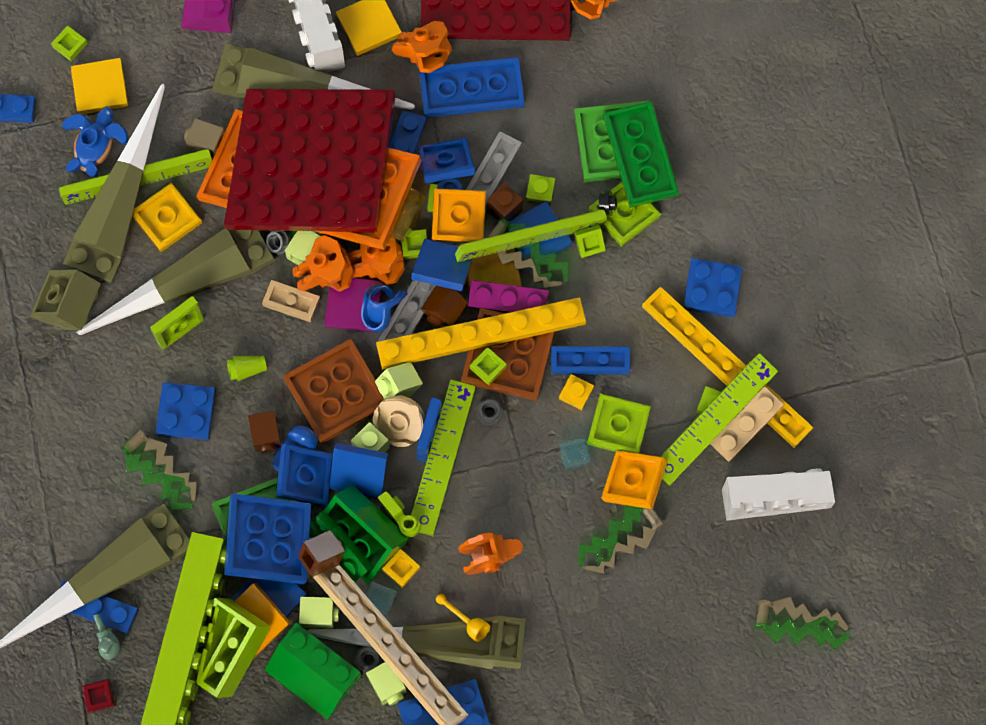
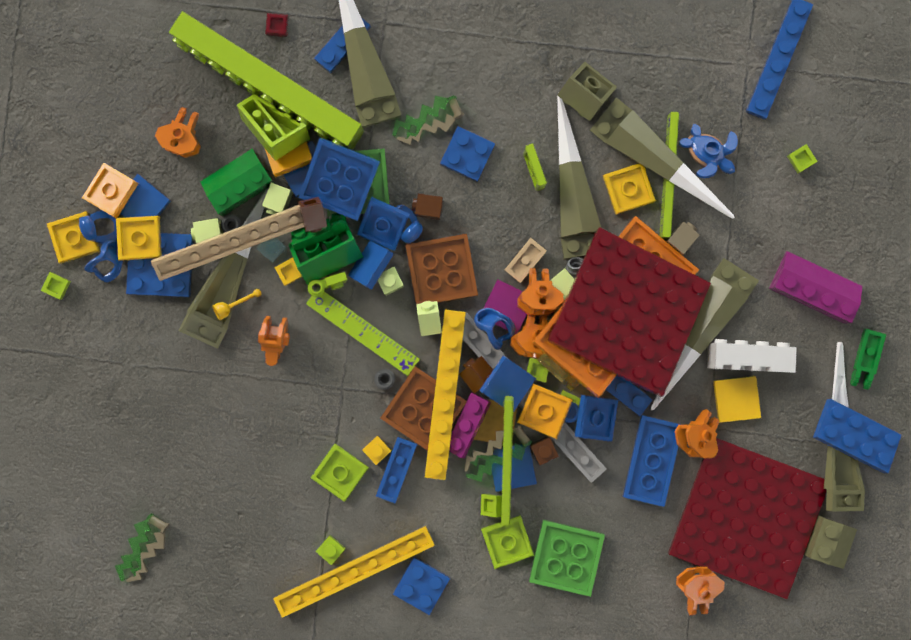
camera: 110 degrees right, 15 degrees up
(99, 86) = (757, 171): yellow tile -> none
(109, 644) = (308, 42): sand green piece -> none
(245, 366) = (485, 208): lime cone -> none
(399, 420) = (399, 308): tan tile -> none
(428, 430) = (381, 327): blue tile -> none
(488, 366) = (416, 390): lime plate -> none
(540, 189) = (549, 483): lime plate -> none
(574, 453) = (328, 430): clear light blue plate -> none
(607, 202) = (515, 530): black plate -> none
(630, 513) = (268, 455): piece -> none
(634, 479) = (290, 467): light orange tile -> none
(640, 154) = (547, 572): green tile -> none
(716, 416) = (314, 545): lime tile -> none
(747, 424) = (302, 569): tan plate -> none
(777, 494) = (240, 570): white wedge -> none

